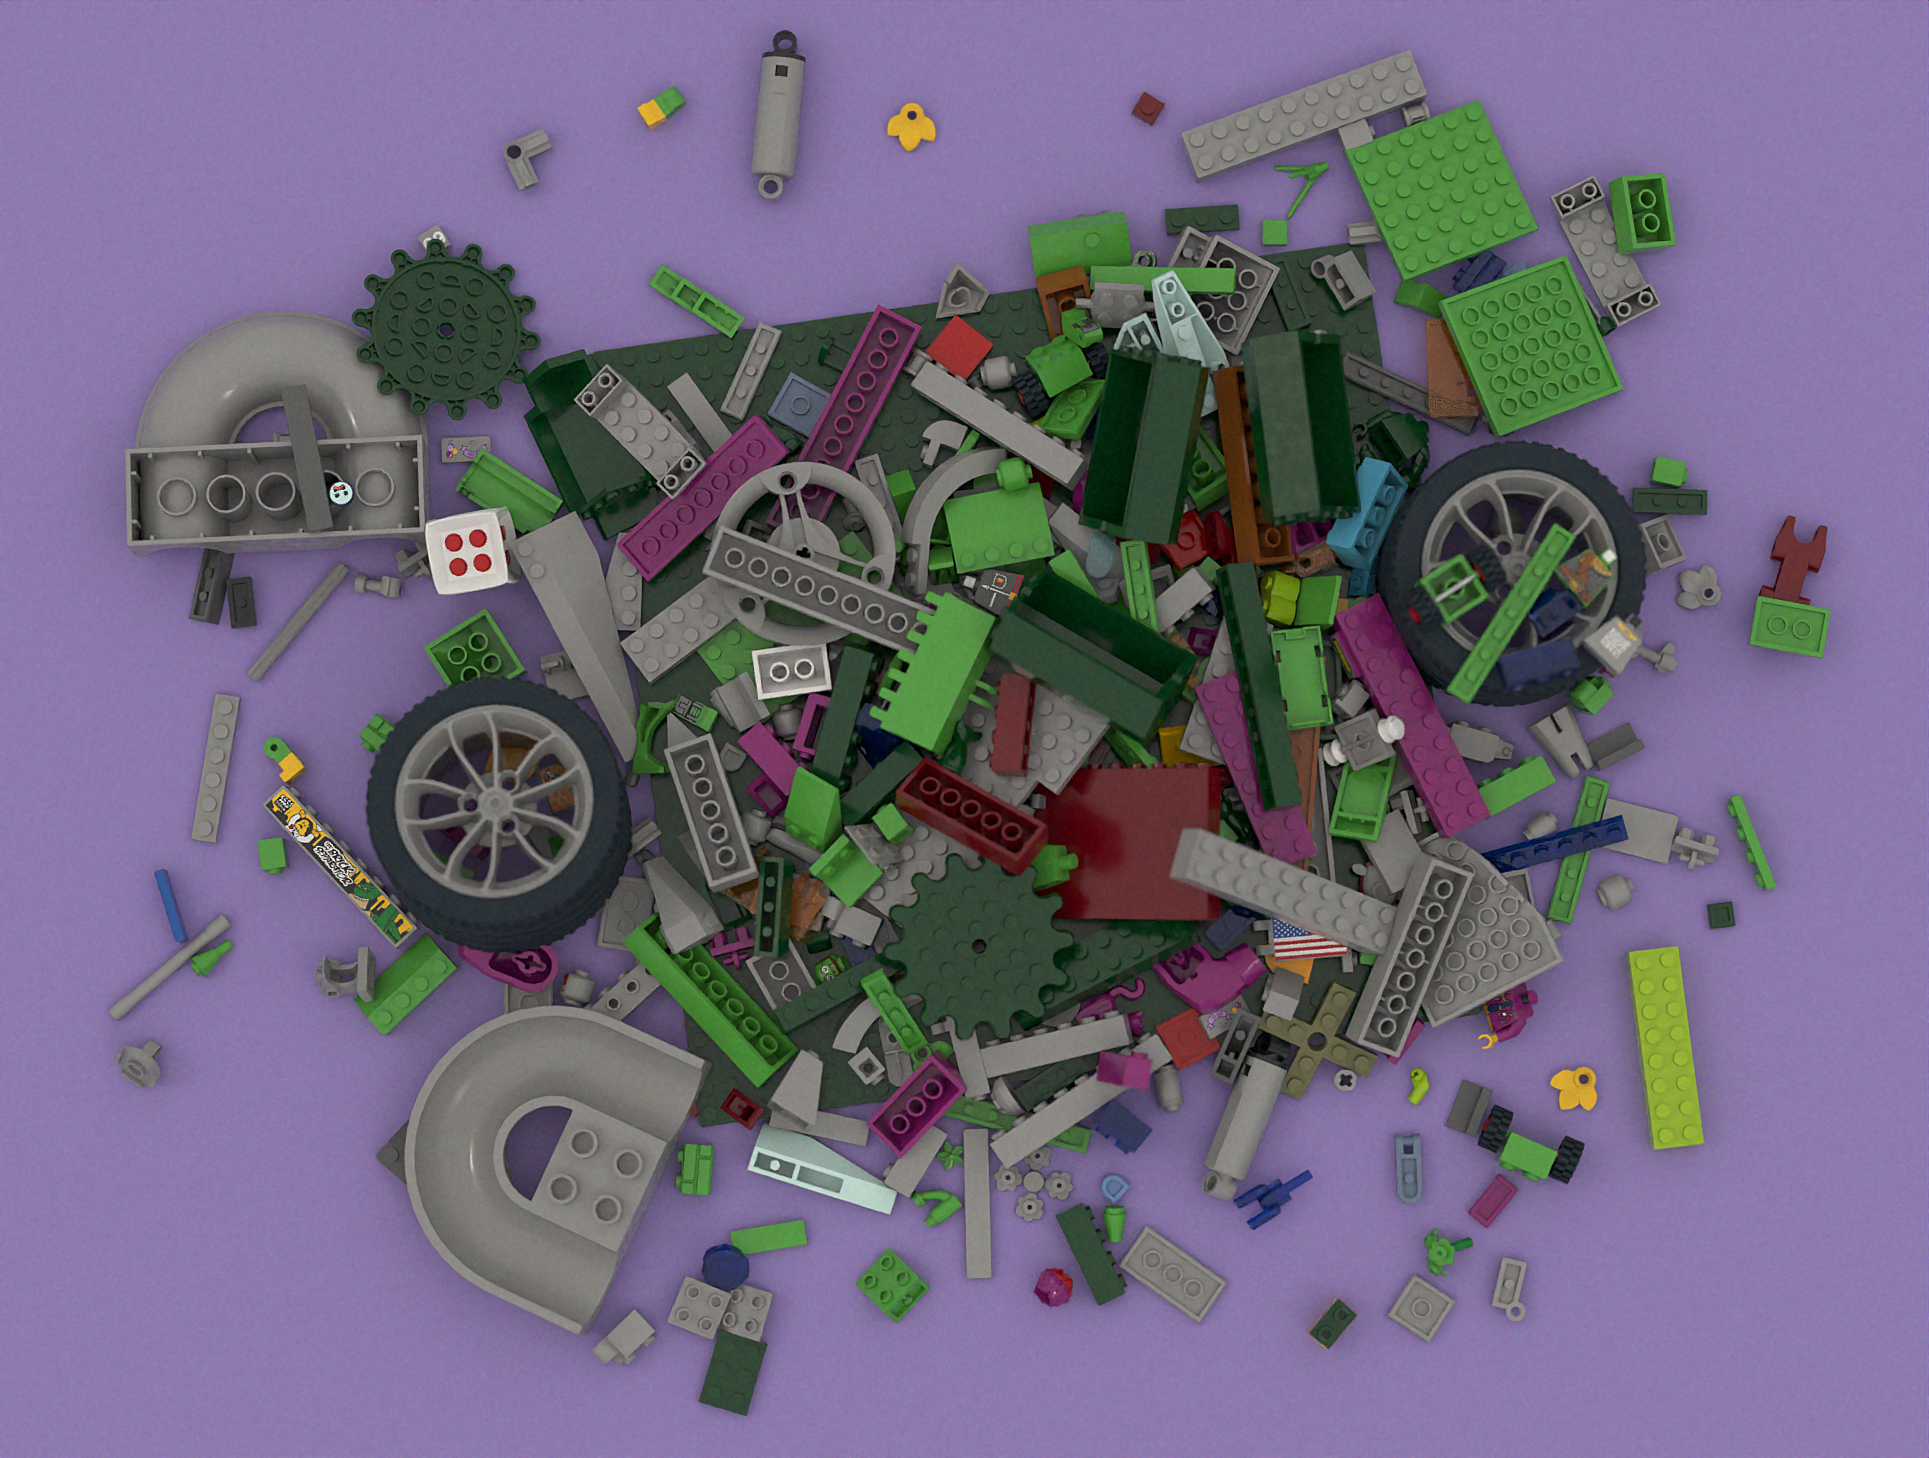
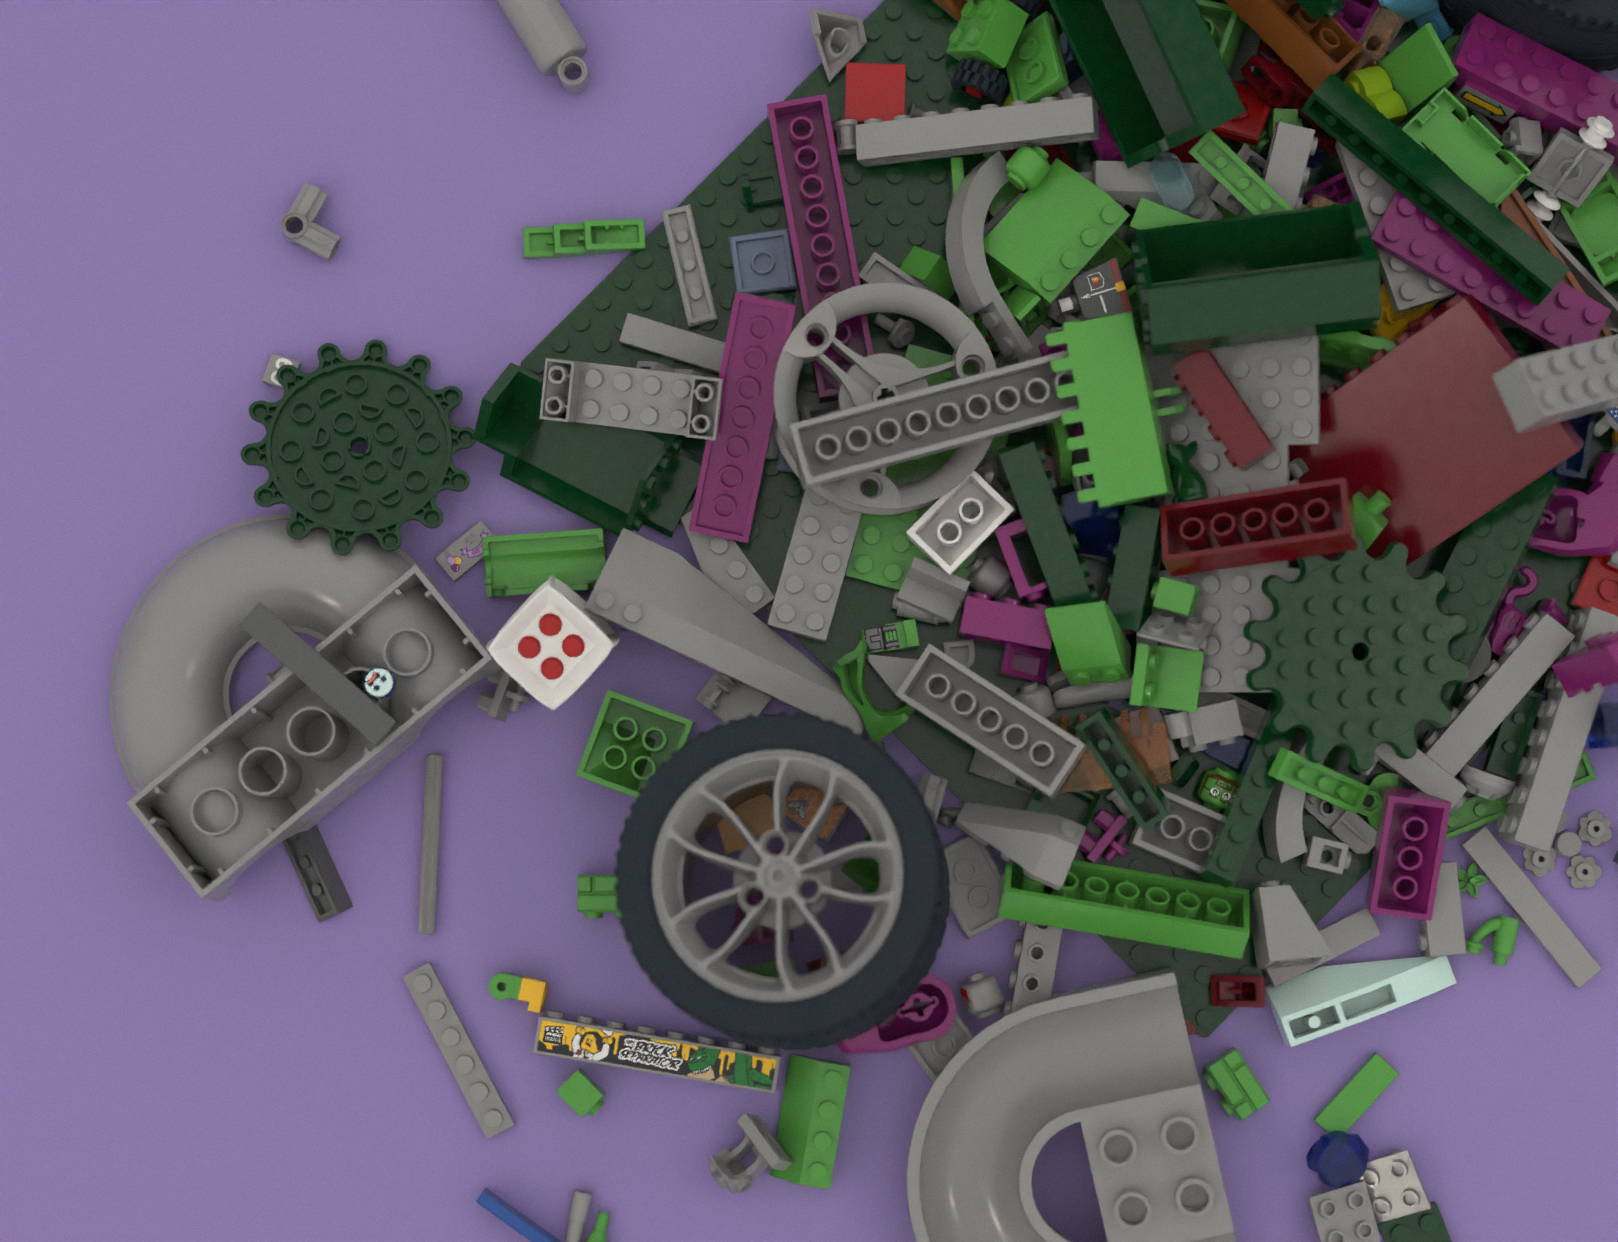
camera: 40 degrees left, 0 degrees up
(241, 602) = (360, 867): black plate -> none
(388, 586) = (491, 742): light grey leg -> none
(661, 107) = (406, 78): leg -> none
(892, 1285) = (1511, 1050): bright green bracket -> none
(942, 434) = (925, 185): light grey brick -> none
(998, 372) = (932, 86): light grey head -> none

